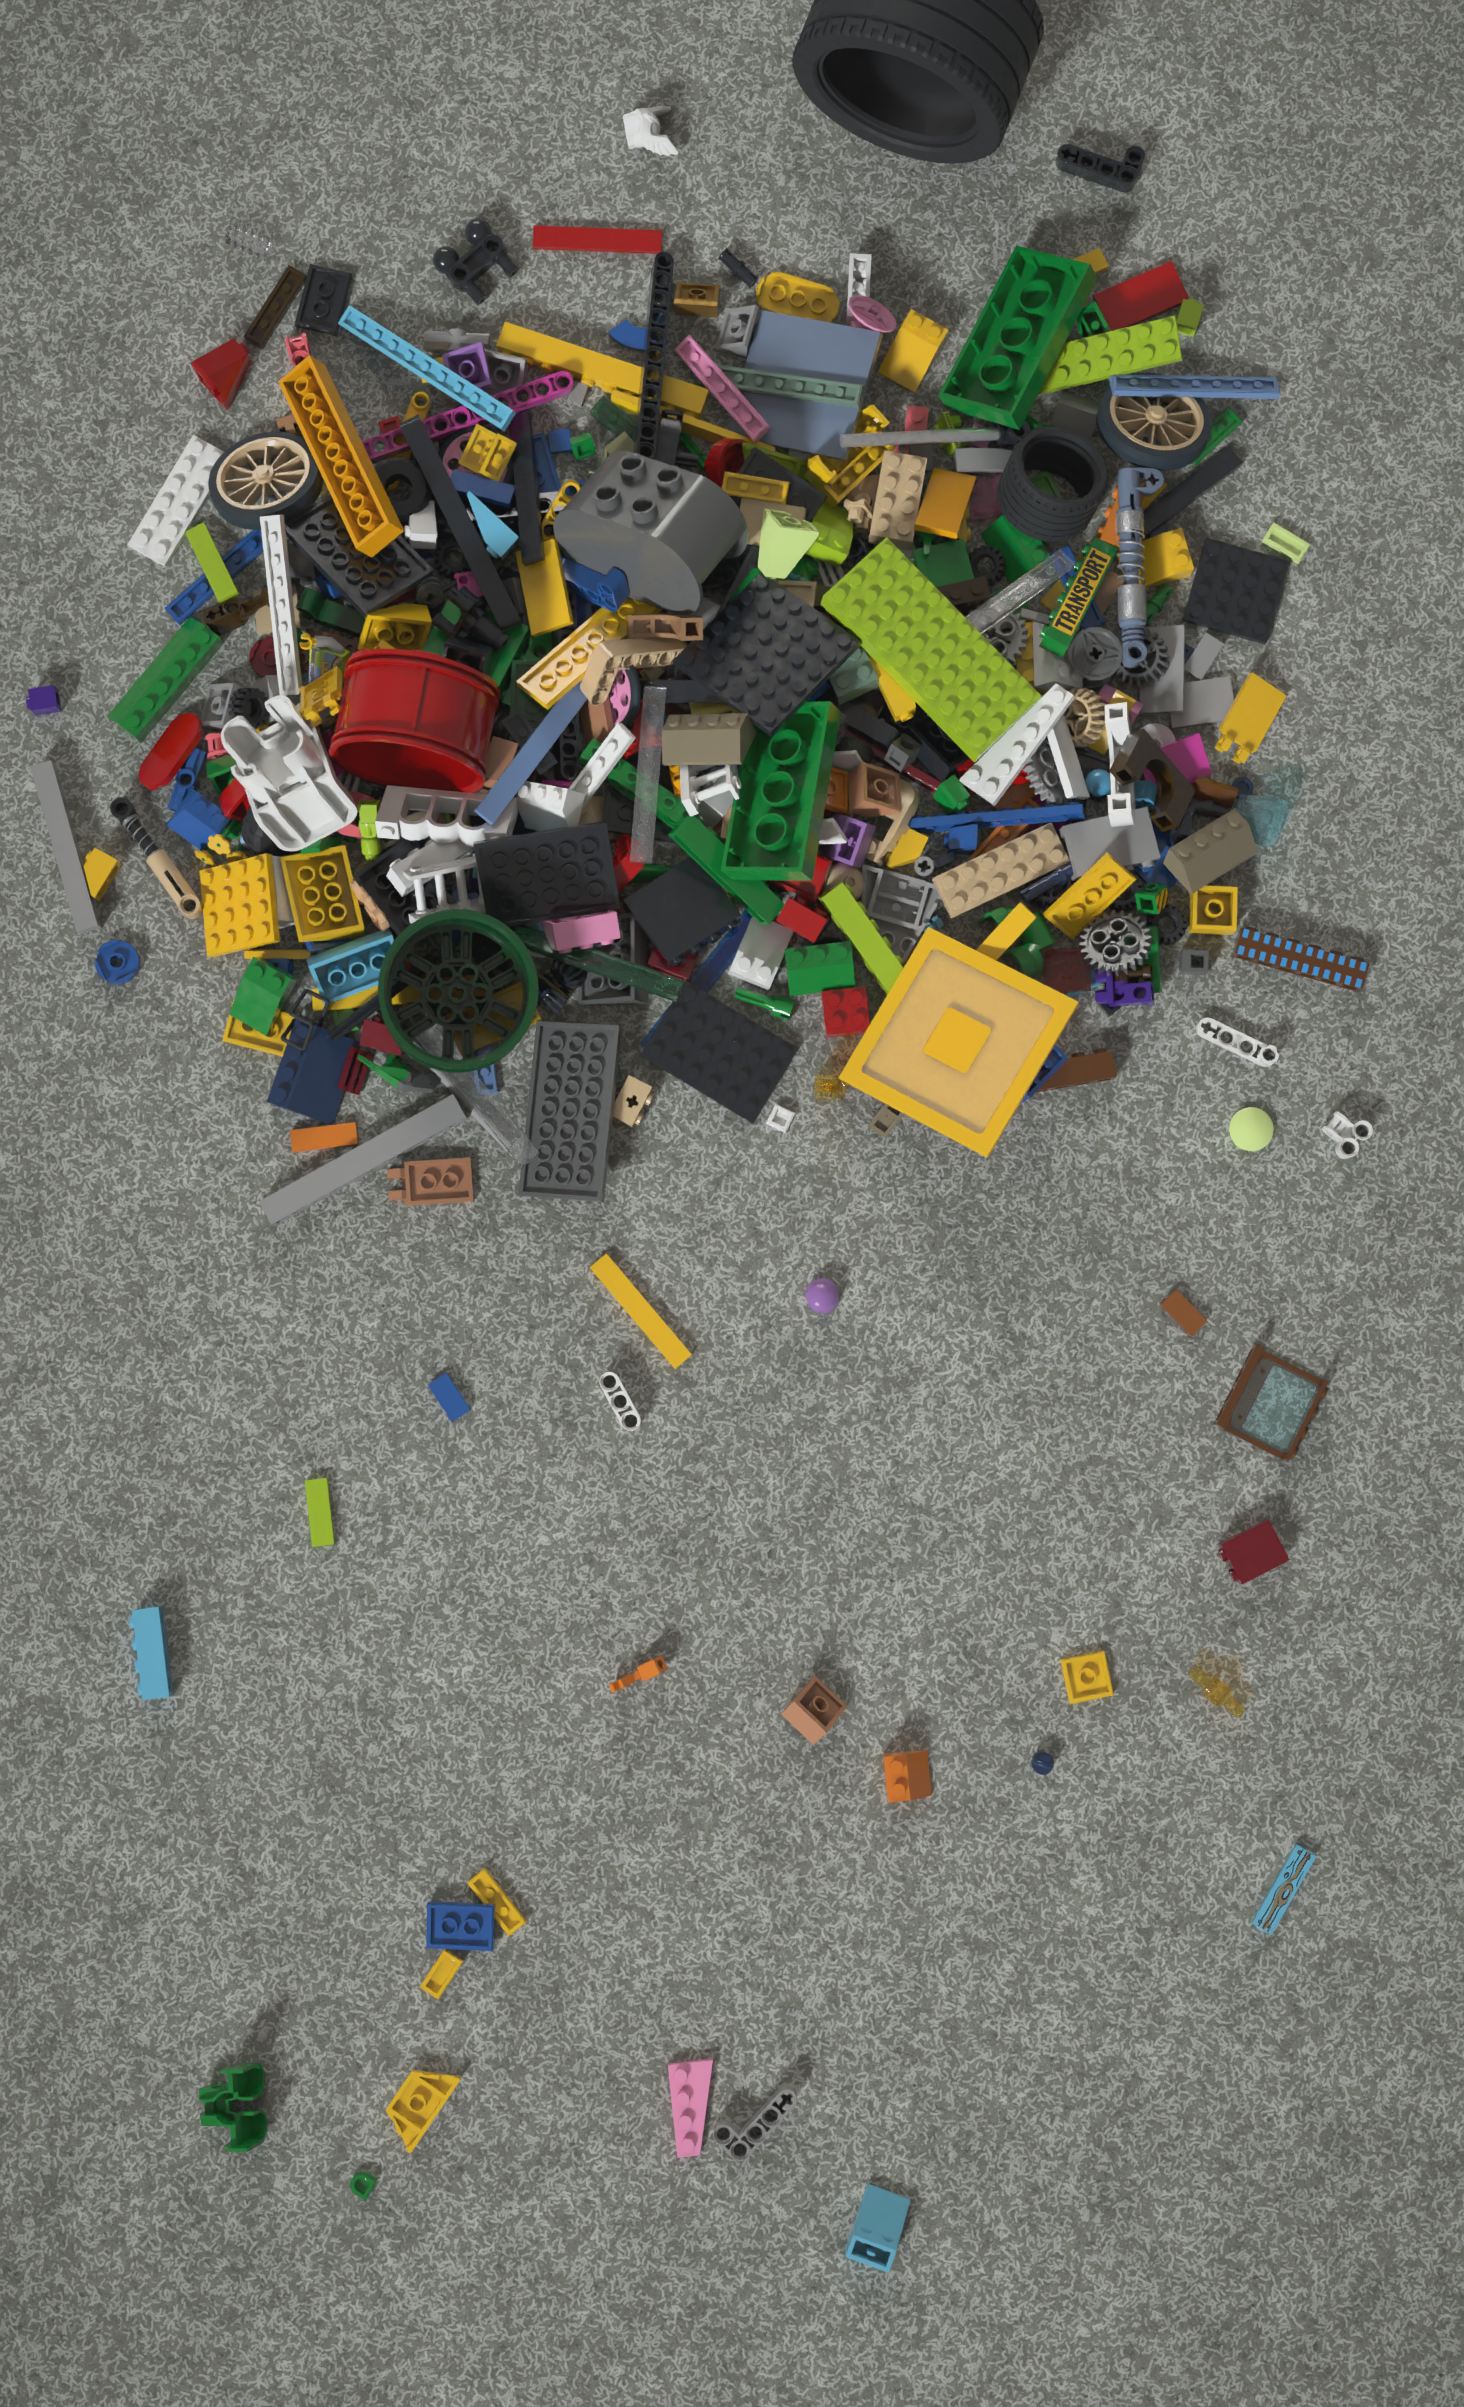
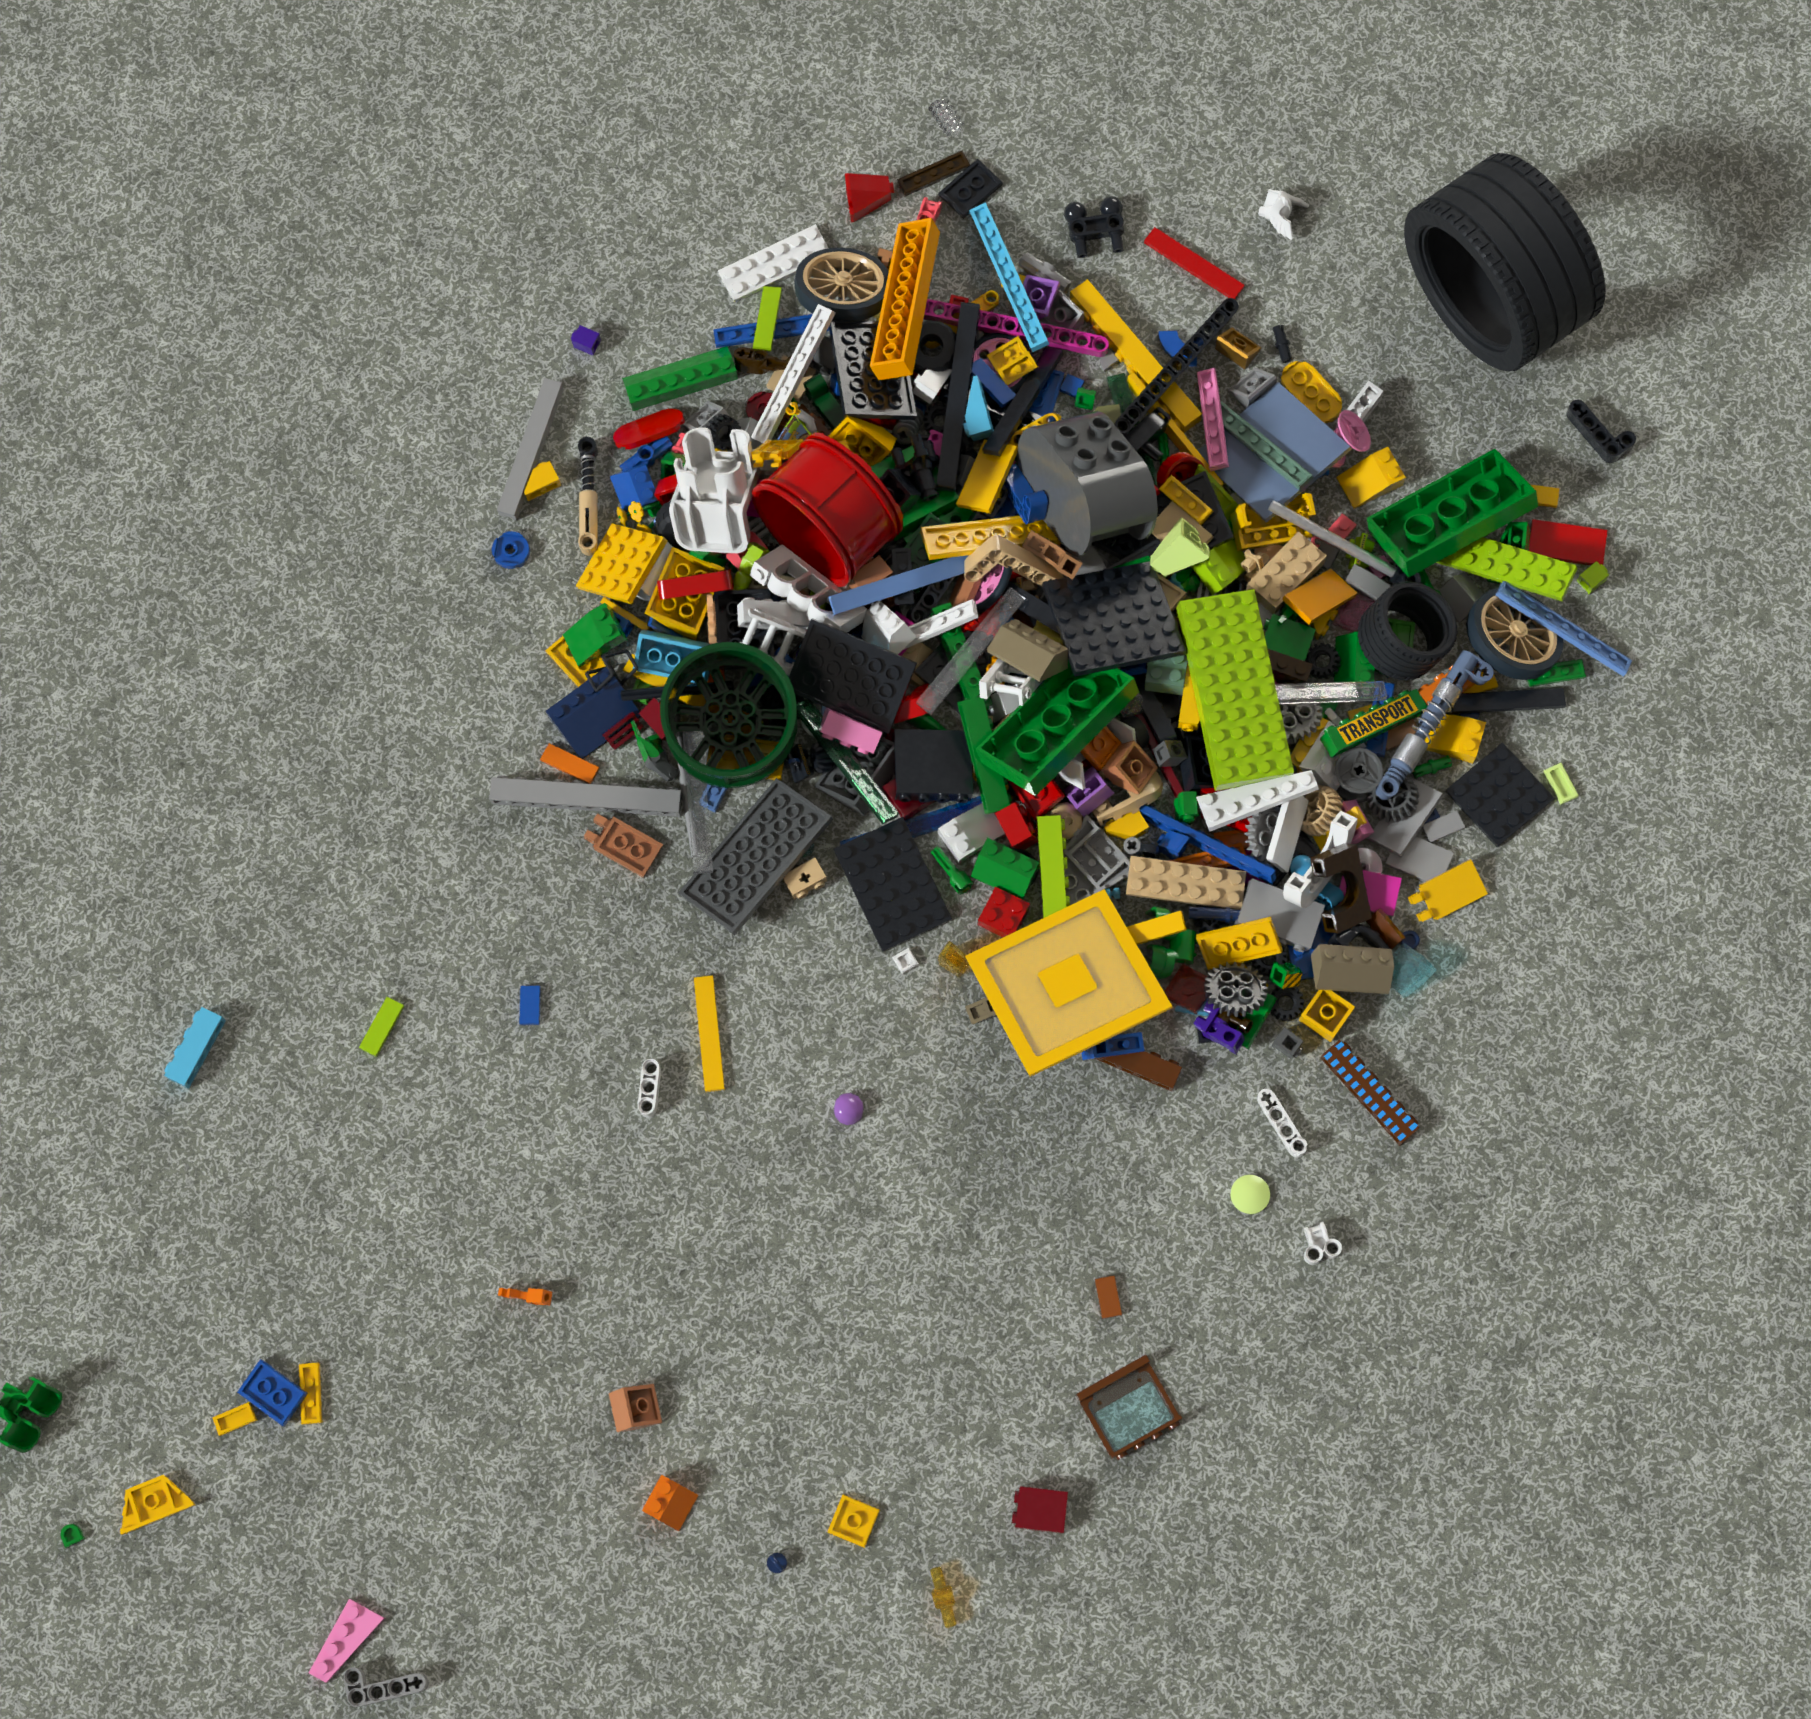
camera: 35 degrees right, 10 degrees down
(331, 881) = (695, 584): none -> red beam

